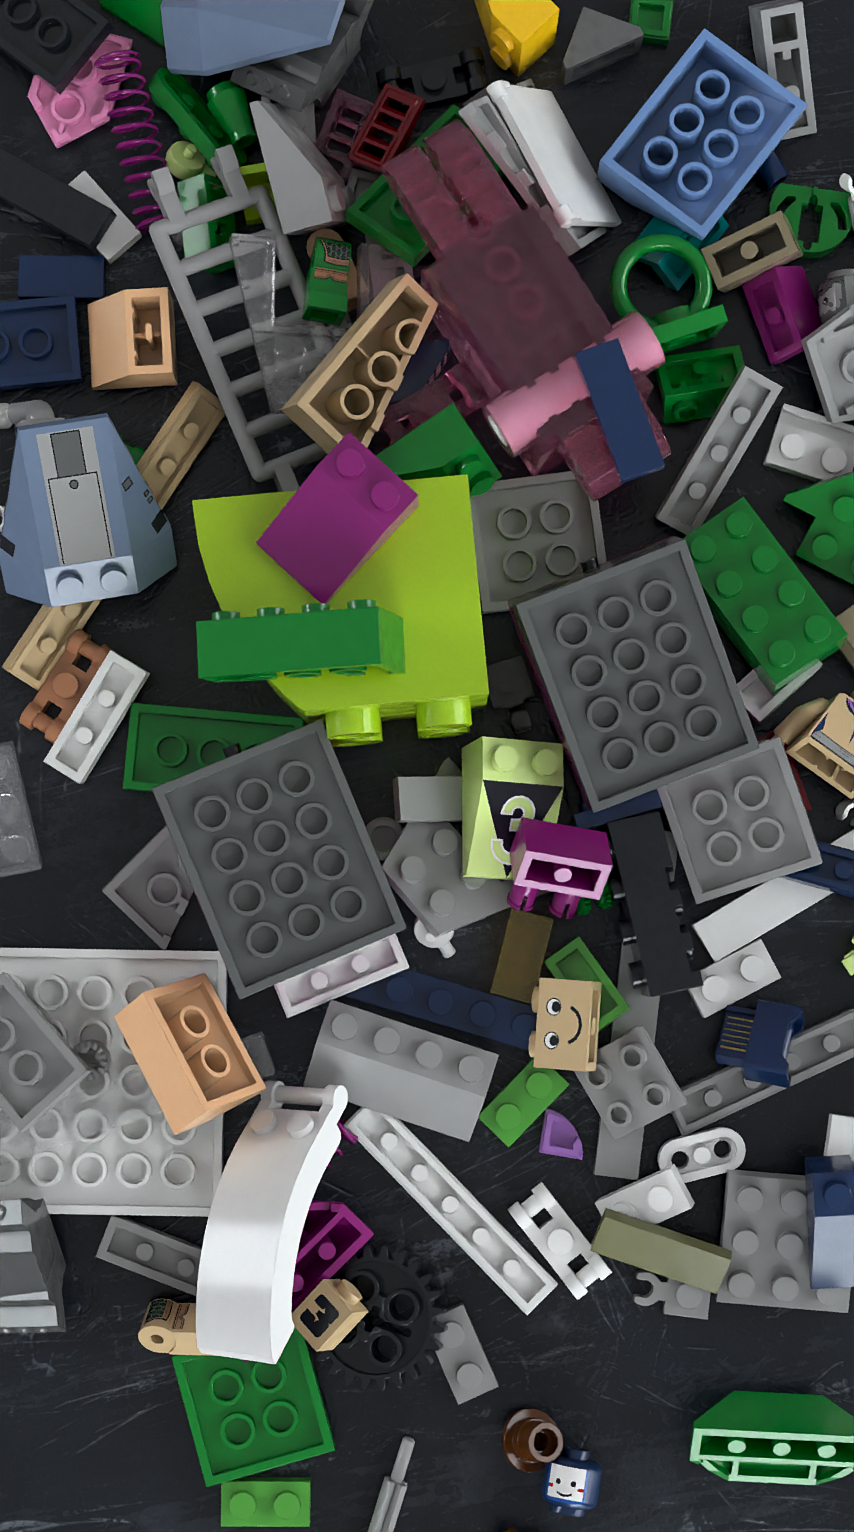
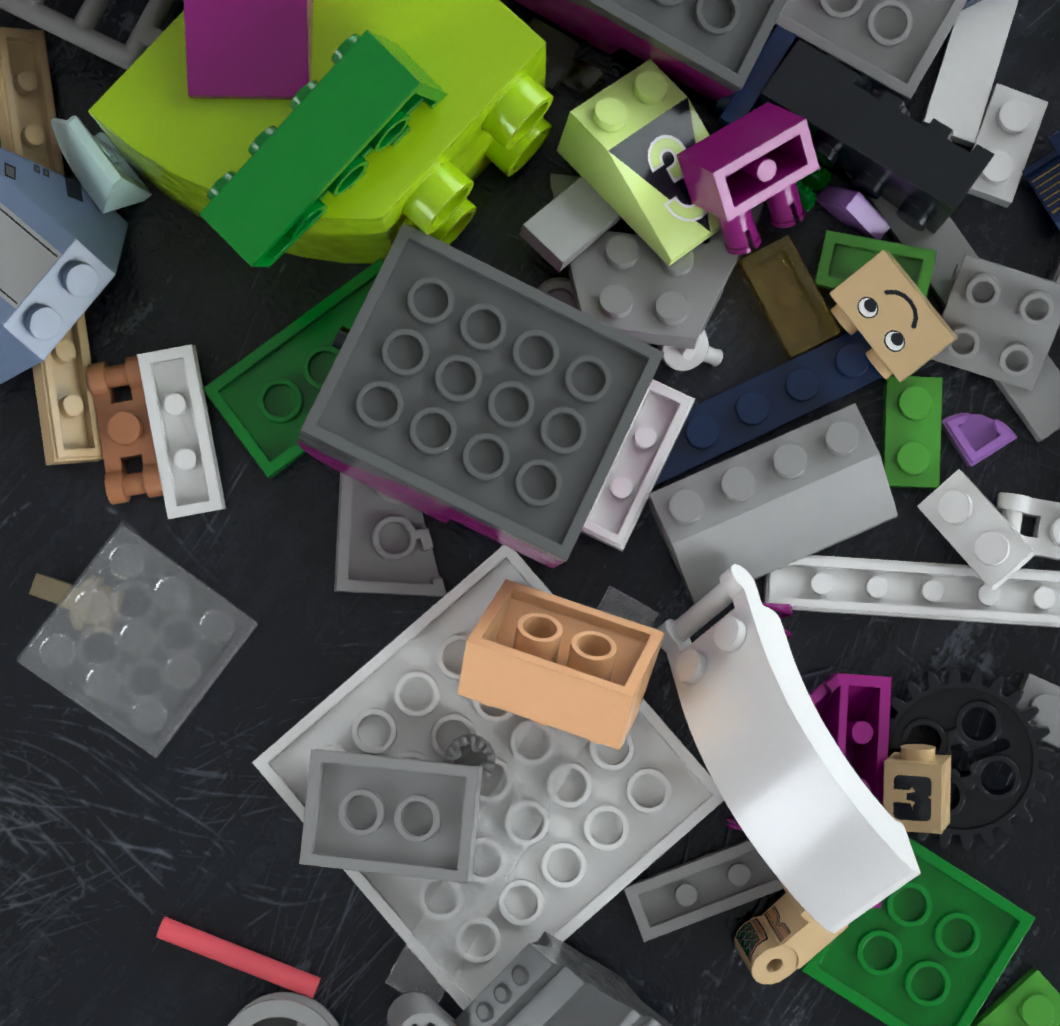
camera: 40 degrees left, 0 degrees up
(180, 527) = (99, 166): none -> light aqua slope
(506, 1192) = (976, 530): none -> white plate
(606, 939) = (853, 211): none -> medium lavender tile

